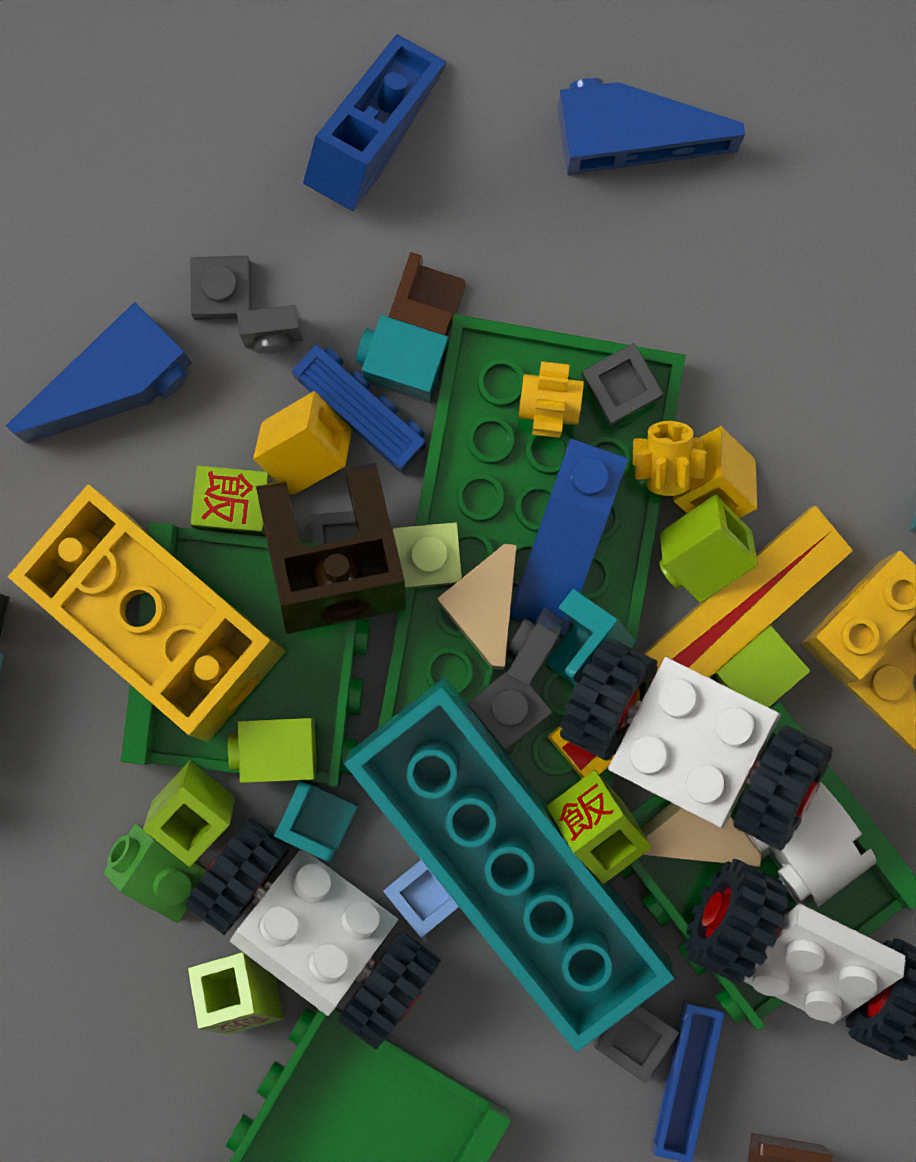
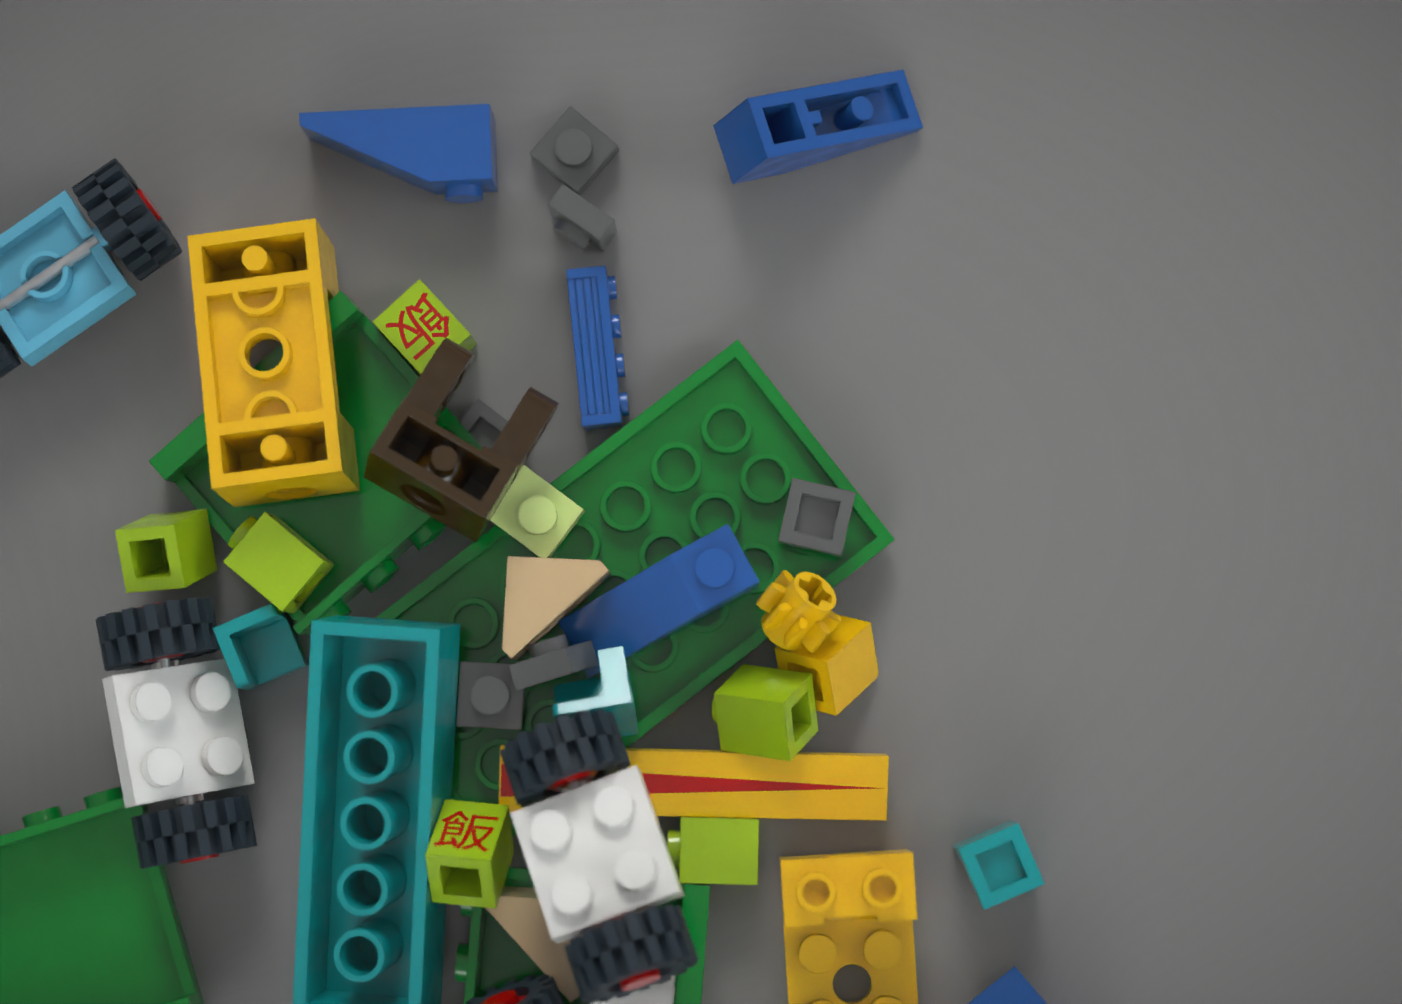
camera: 50 degrees right, 0 degrees up
(152, 874) = (94, 572): bright green bracket -> none
(234, 995) = (70, 725): lime brick -> none
(303, 443) = (523, 336): yellow panel -> none
(402, 358) = (664, 337): teal brick -> none
(420, 898) = (281, 783): light blue plate -> none
(427, 297) = (727, 308): reddish brown panel -> none
(550, 399) = (746, 478): yellow gear -> none
(632, 127) = (1018, 312): blue slope -> none

